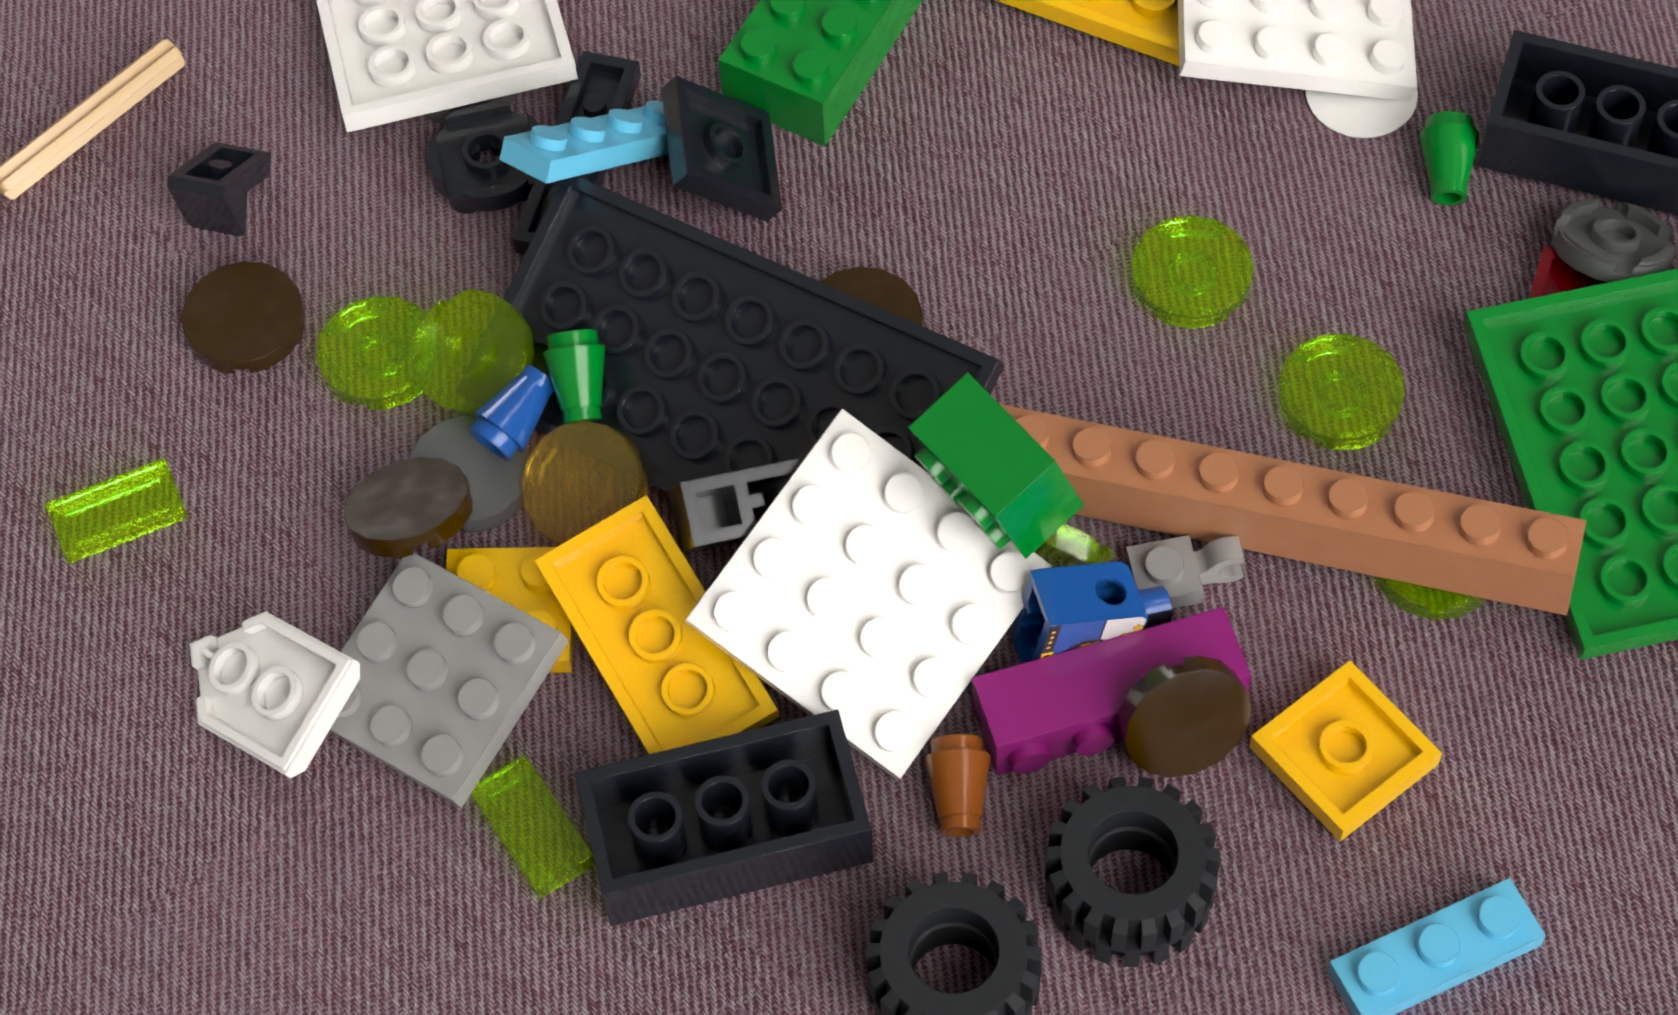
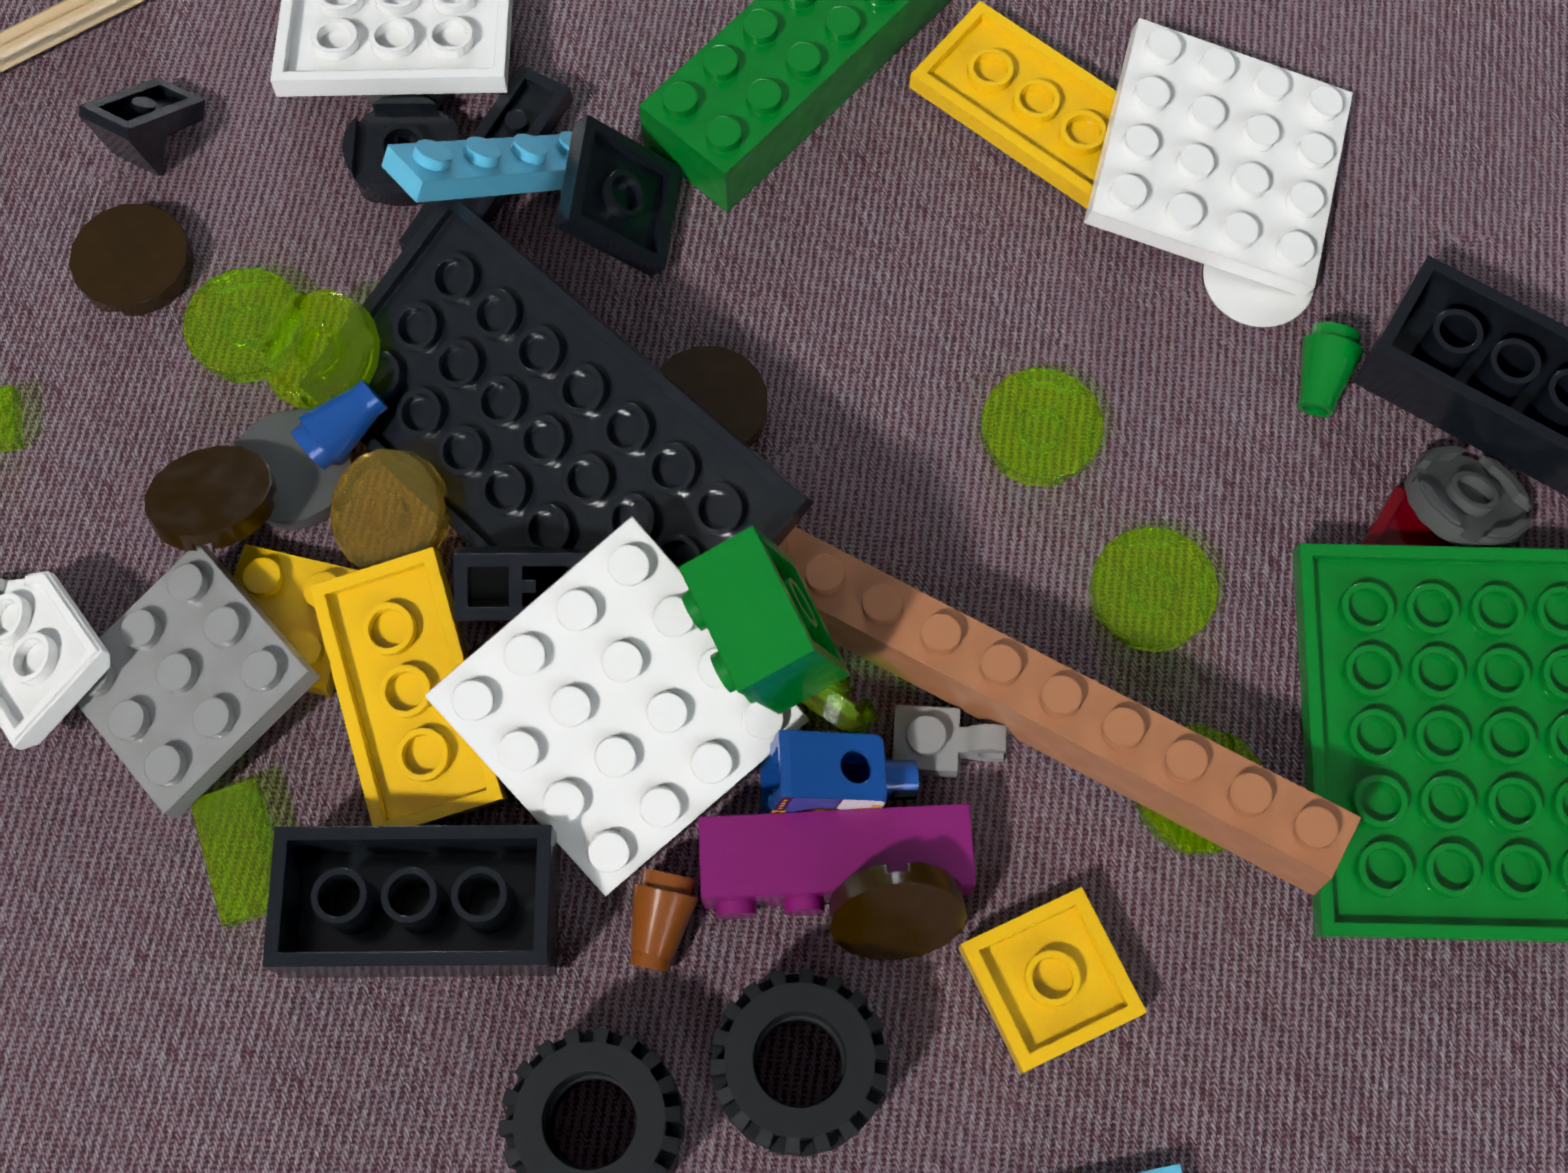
camera: 10 degrees right, 10 degrees up
(576, 373) = (404, 402): green cone -> none

